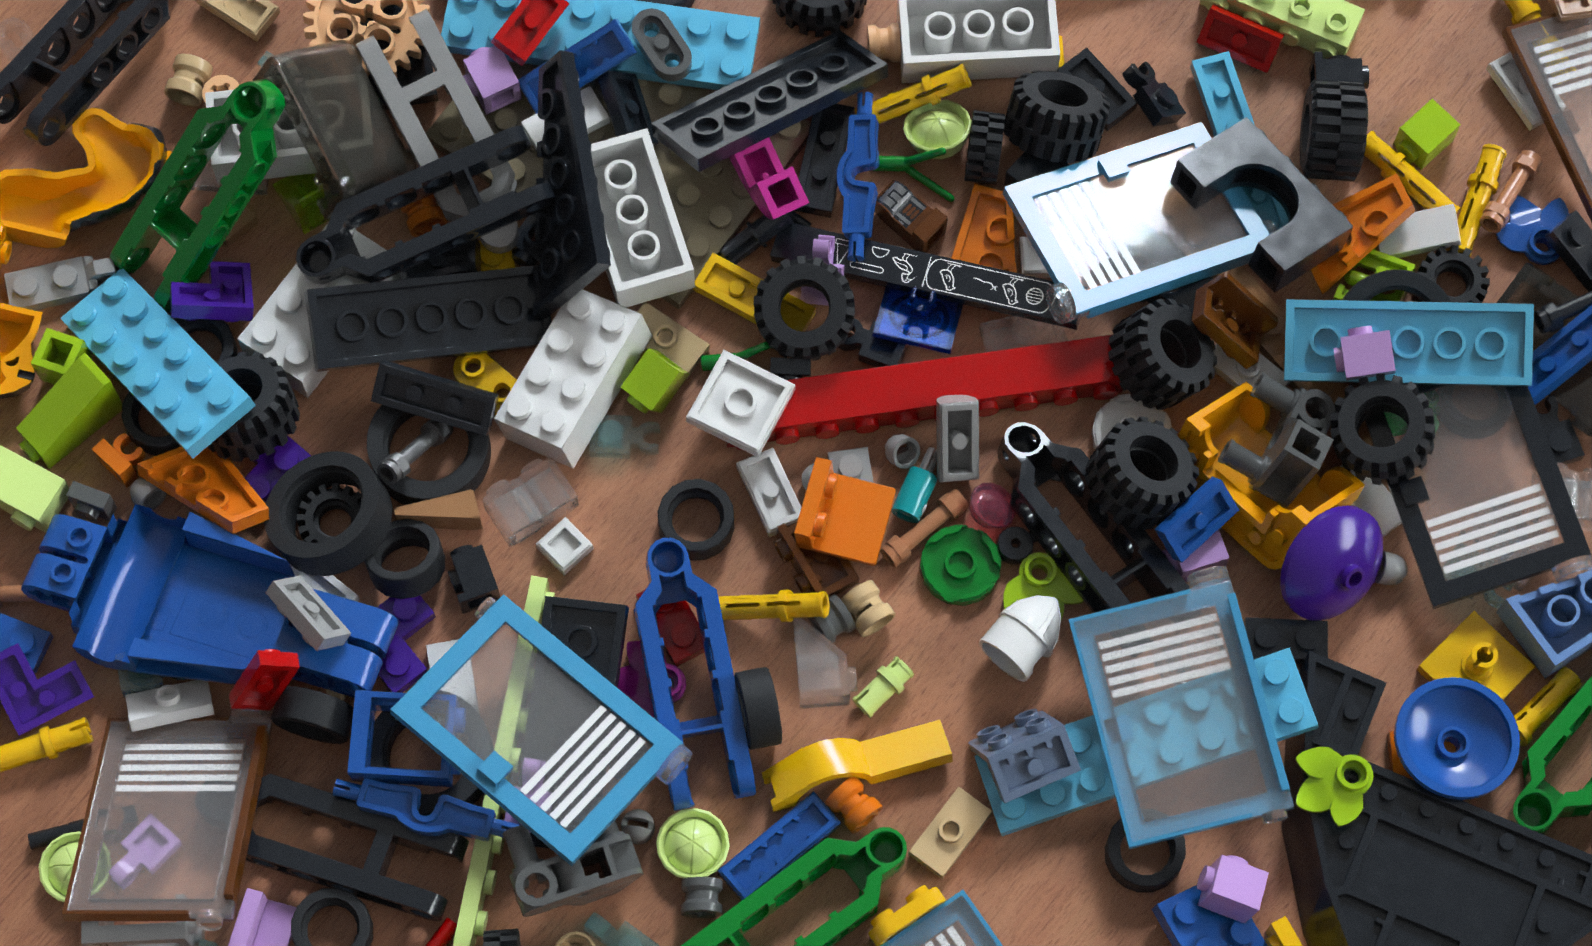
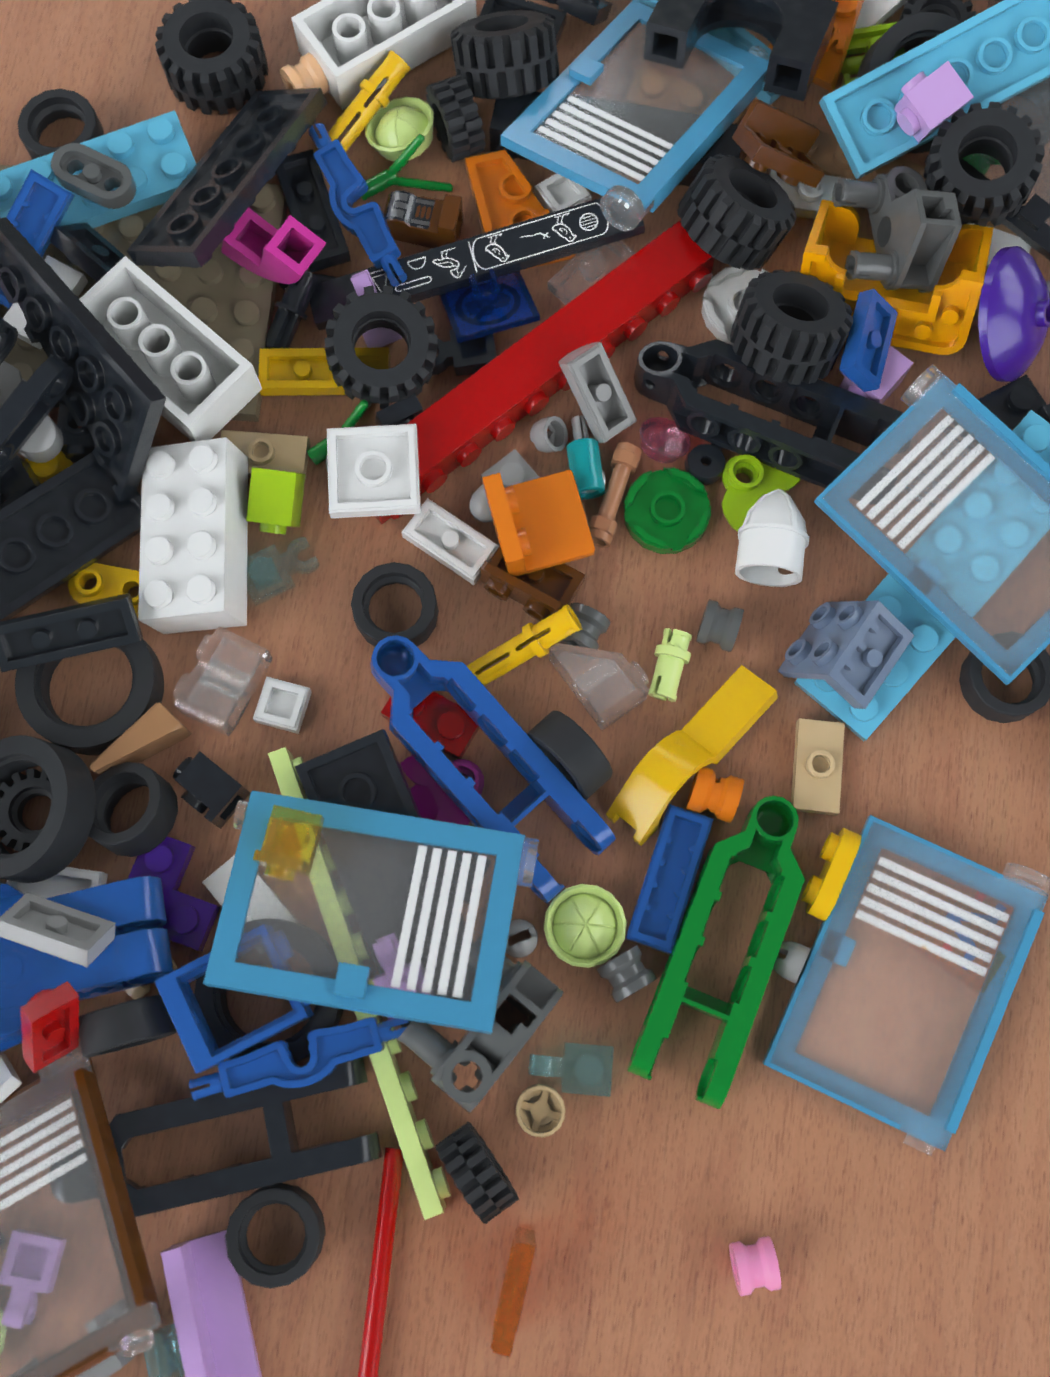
camera: 30 degrees left, 5 degrees up
(397, 465) = (67, 721): flat silver bar -> none
(508, 647) = (289, 843): none -> clear yellow bracket
(867, 608) = (601, 592): tan wheel -> none
(941, 678) = (720, 625): none -> dark grey wheel

